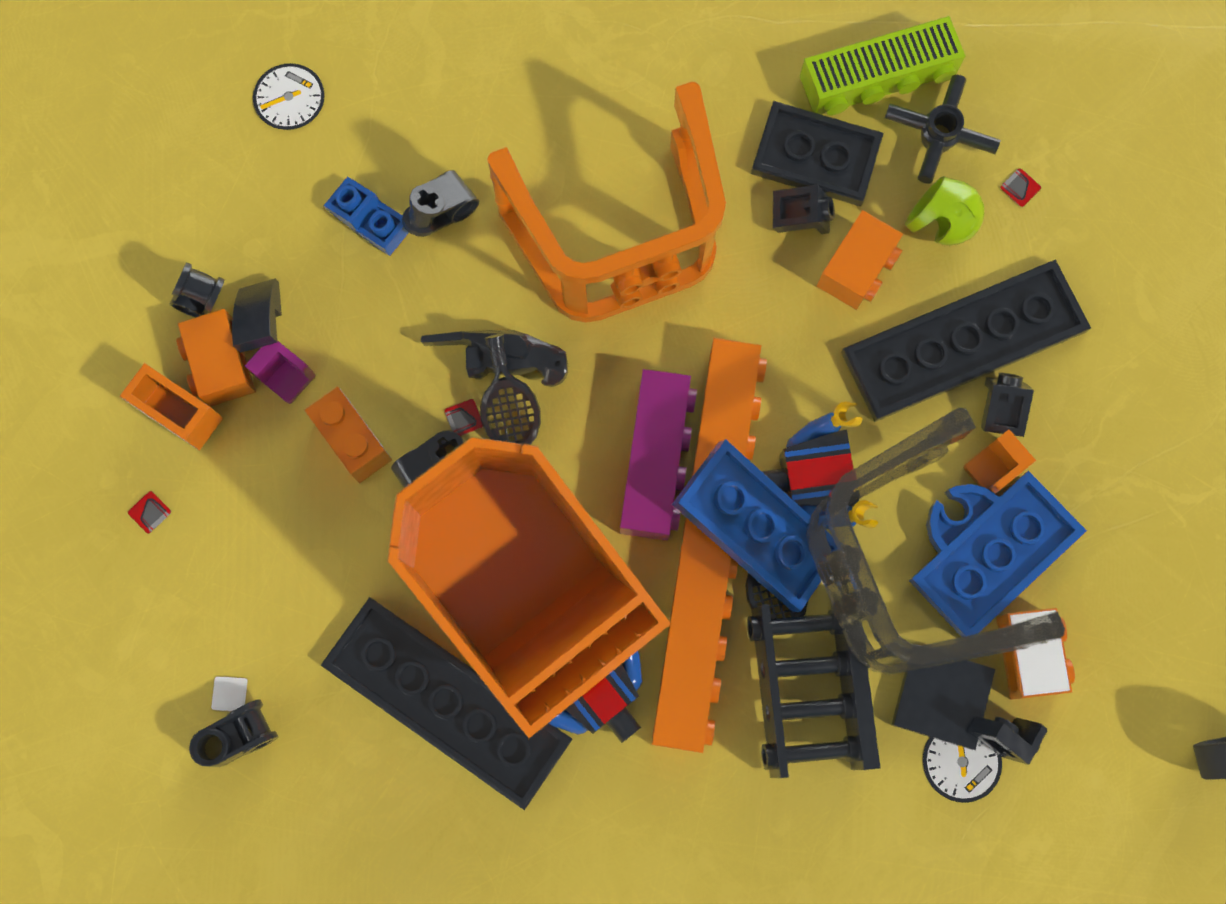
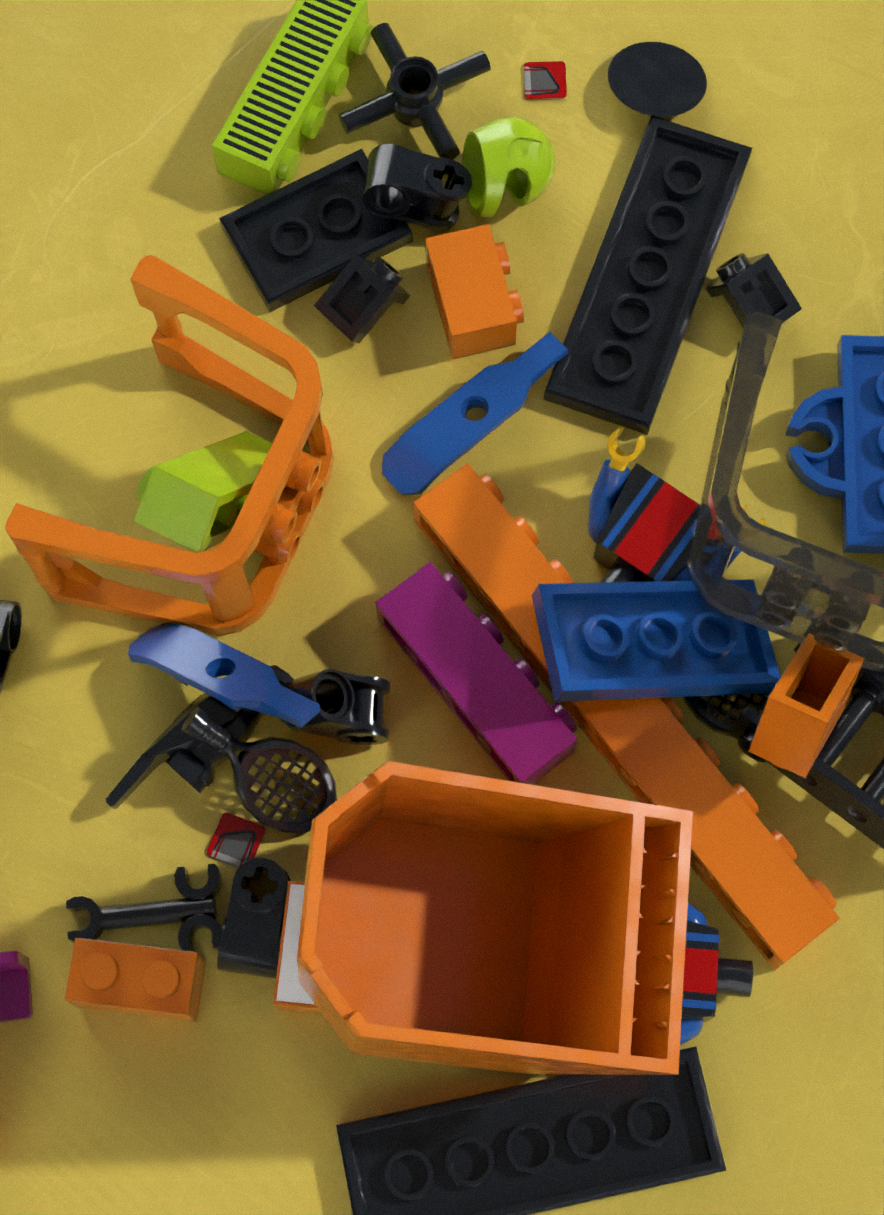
camera: 45 degrees left, 5 degrees down
(410, 430) = (195, 910): none -> black bar
(532, 311) = (200, 659): none -> blue piece
(577, 406) = (348, 706): none -> black piece
(600, 227) = (201, 492): none -> lime brick
(772, 322) = (447, 433): none -> blue piece
(792, 633) = (805, 706): none -> orange brick
(884, 175) = (410, 187): none -> black piece
(999, 463) = (807, 354): orange panel -> none
(1080, 243) = (657, 79): none -> black sticker

